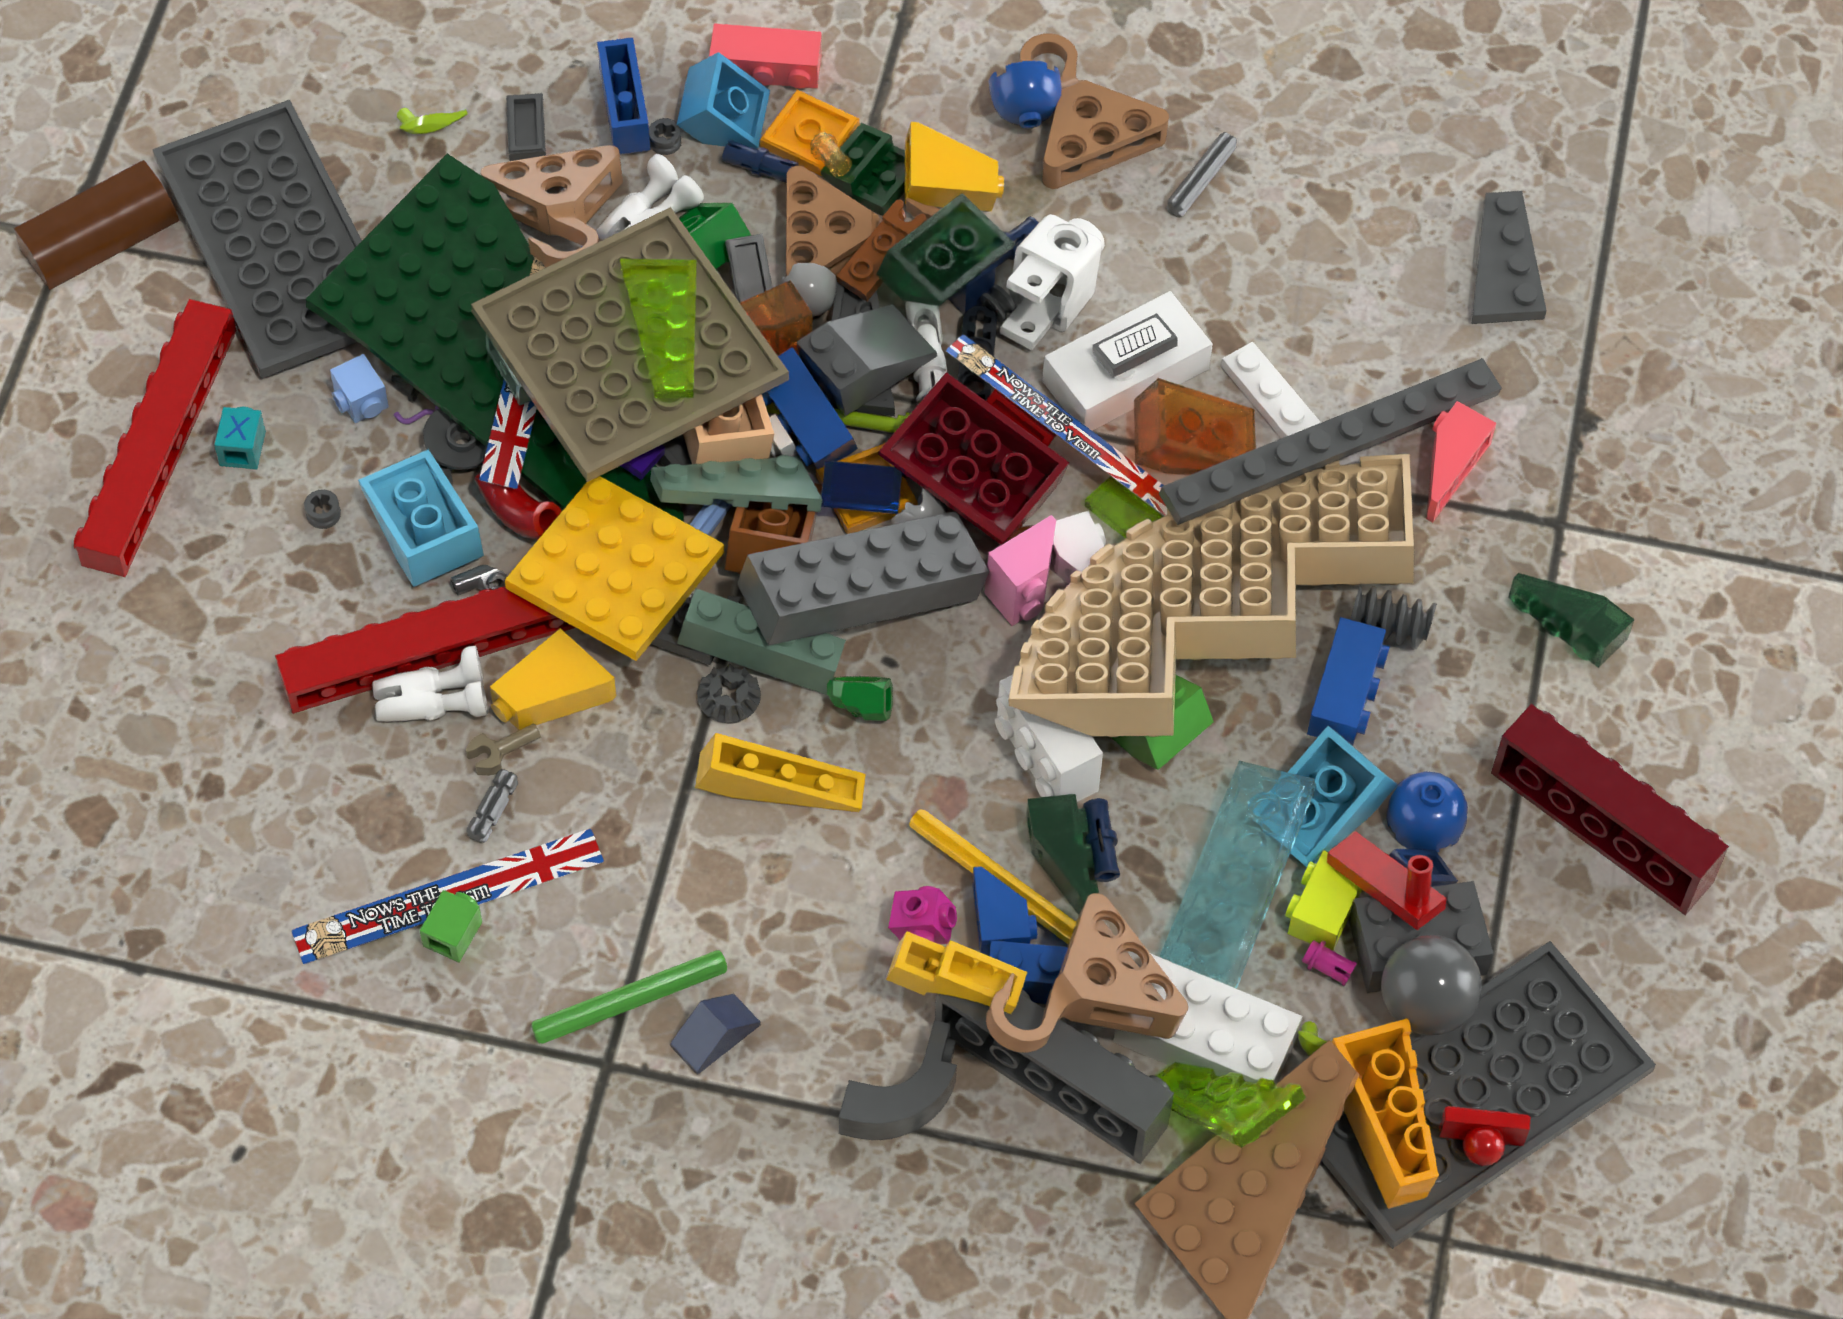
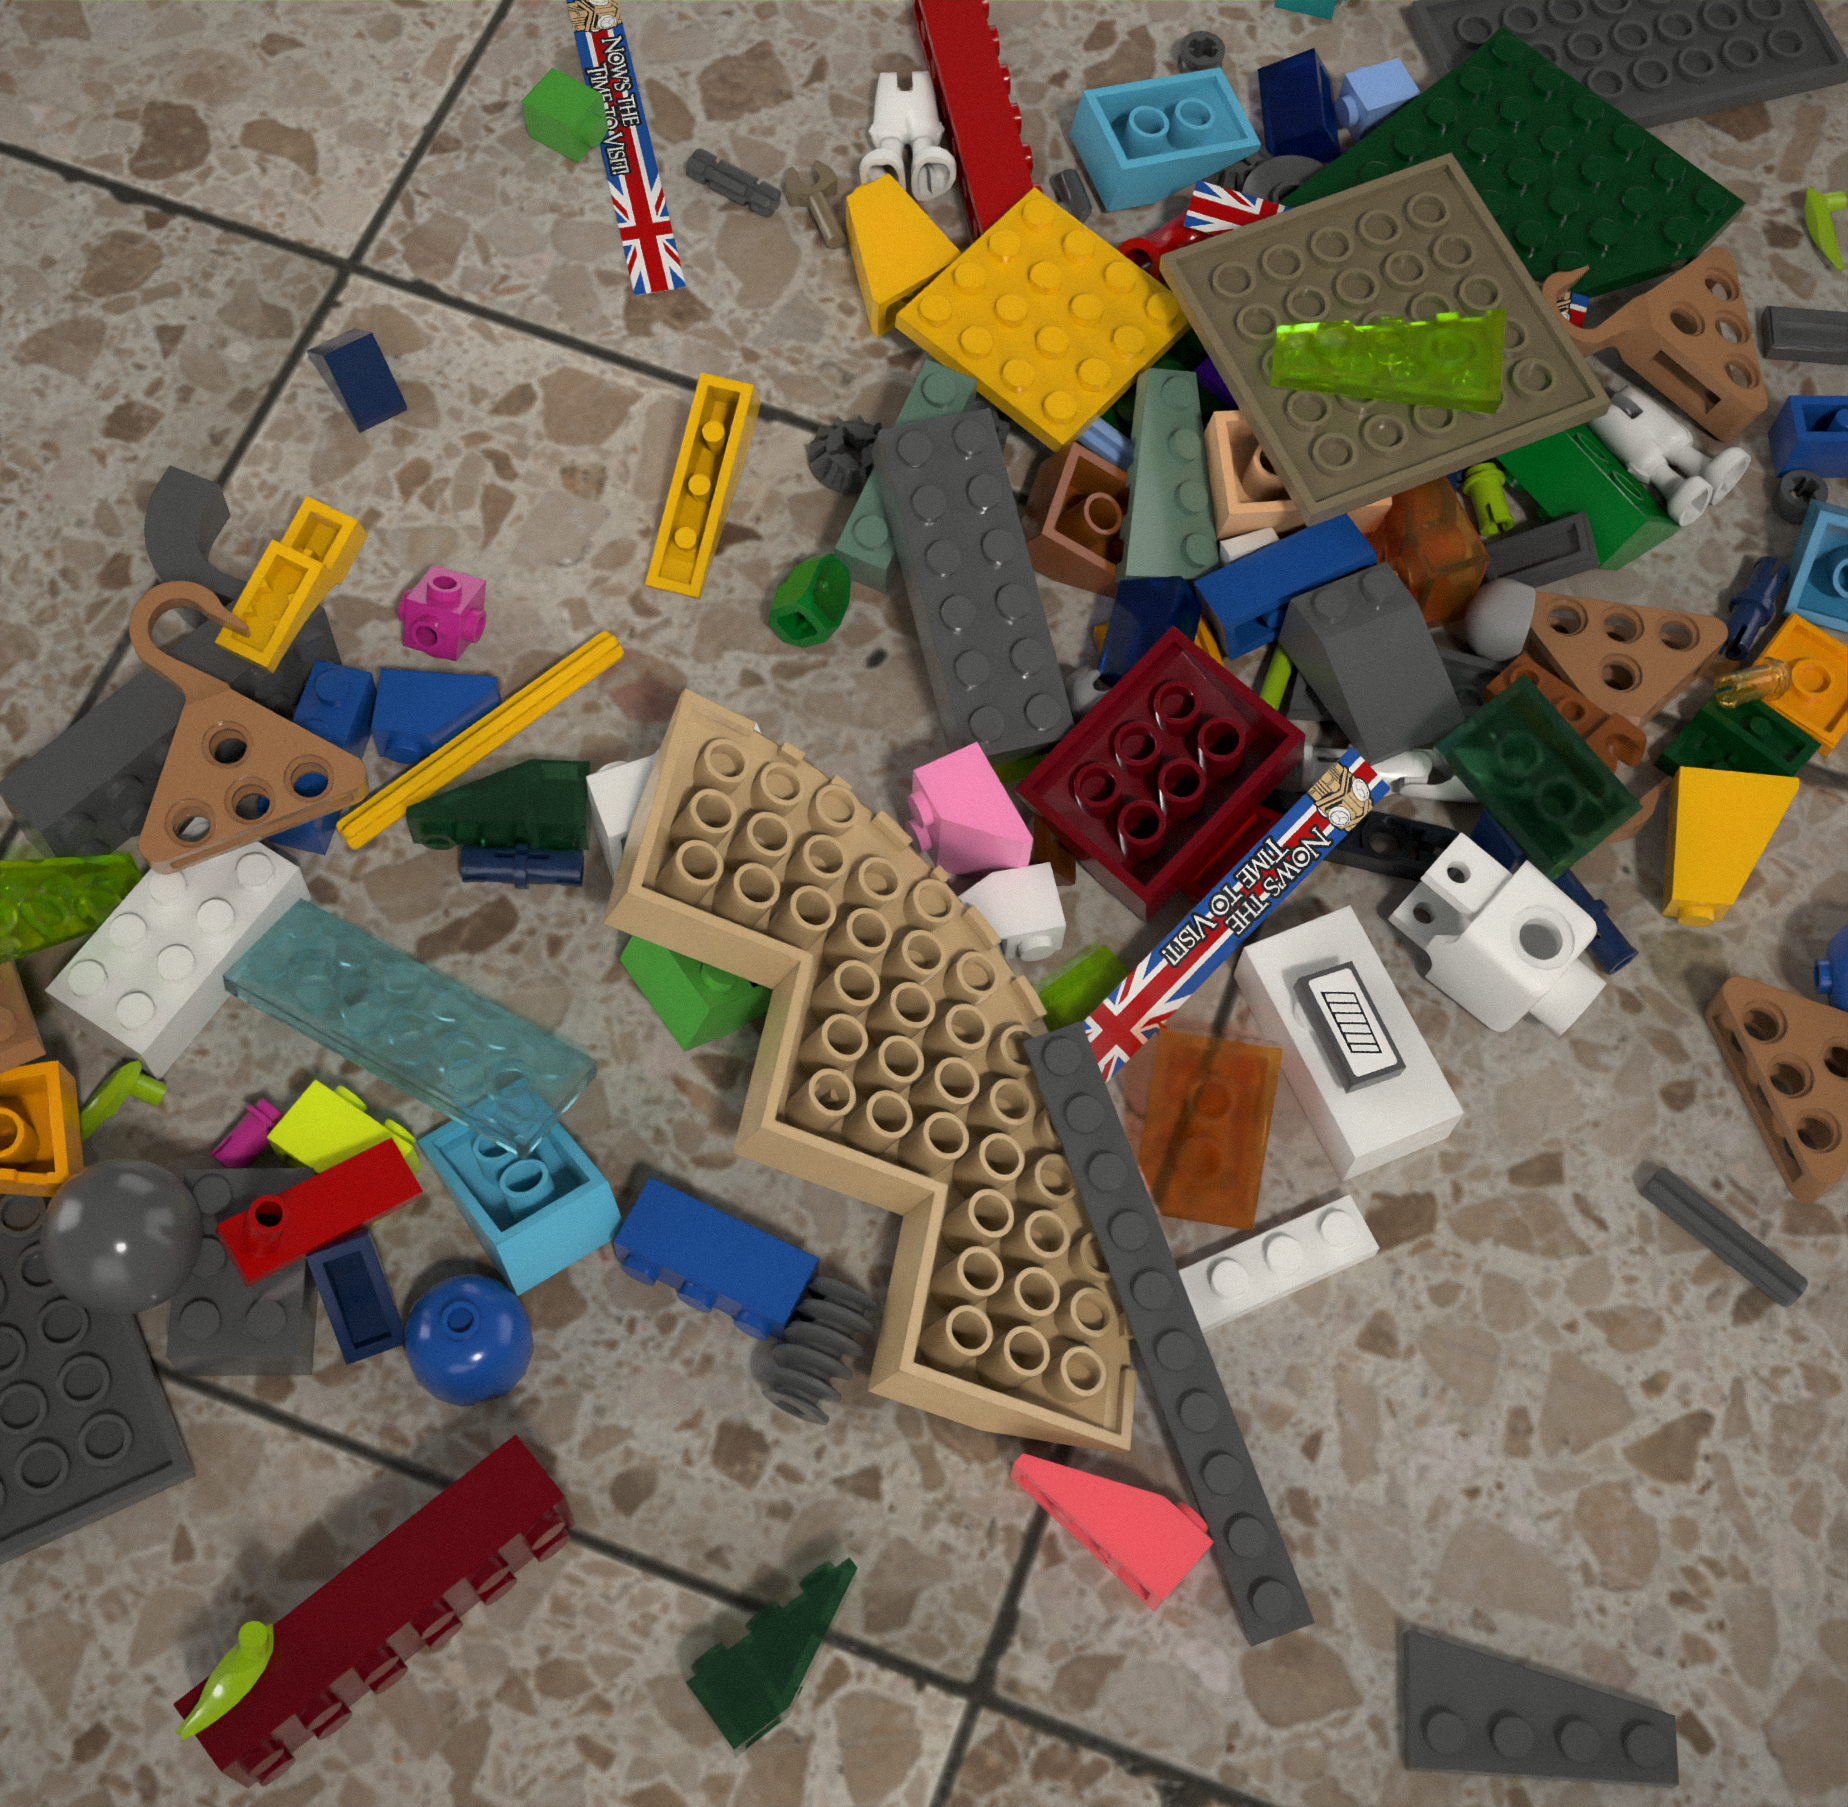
camera: 95 degrees right, 5 degrees up
(372, 439) = (1299, 108): none -> clear blue brick
(629, 996) = (429, 294): bright green axle -> none
(1678, 845) = (231, 1677): none -> lime bar

